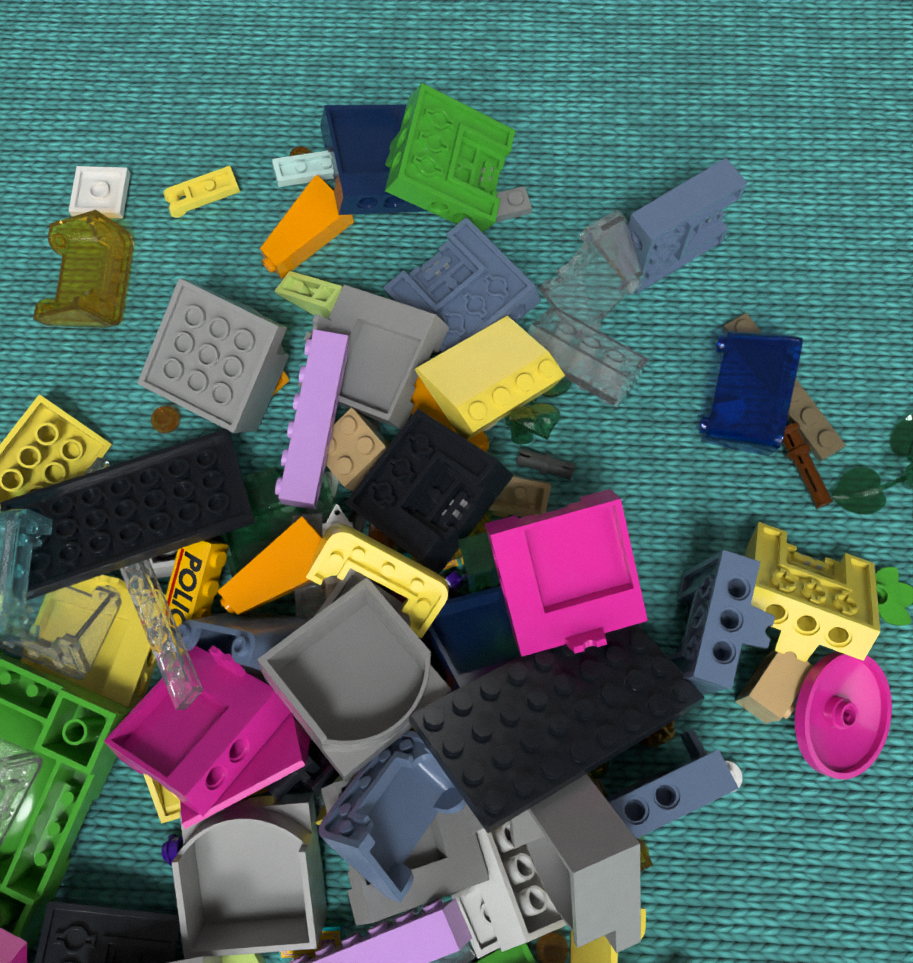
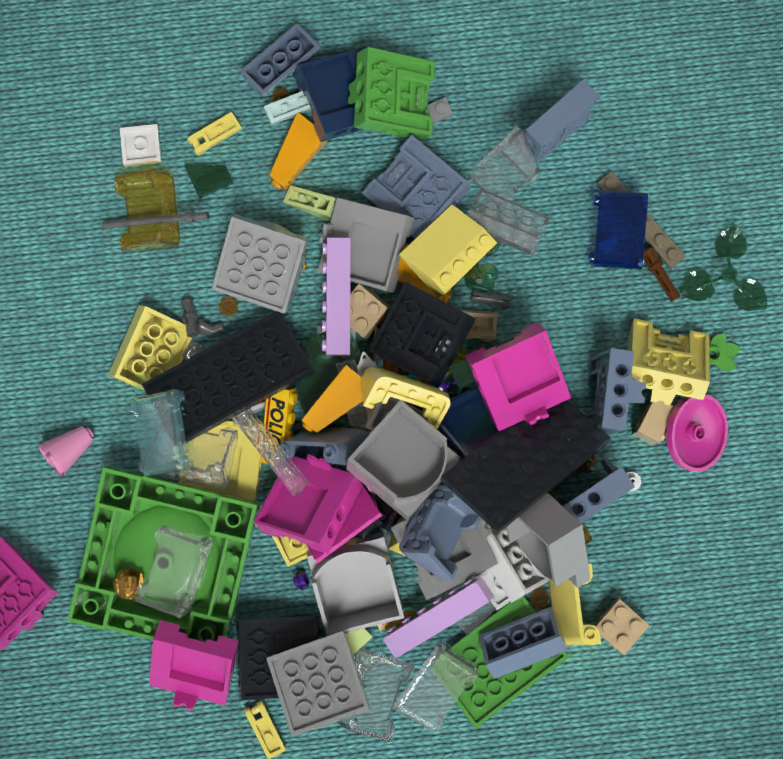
camera: 15 degrees left, 10 degrees up
(104, 425) = (189, 318): none -> dark grey pin
(129, 447) = (209, 330): none -> dark grey arm
(130, 283) = (189, 217): none -> flat silver bar
(180, 247) = (208, 178): none -> clear green wing
(303, 106) = (279, 60): none -> sand blue slope

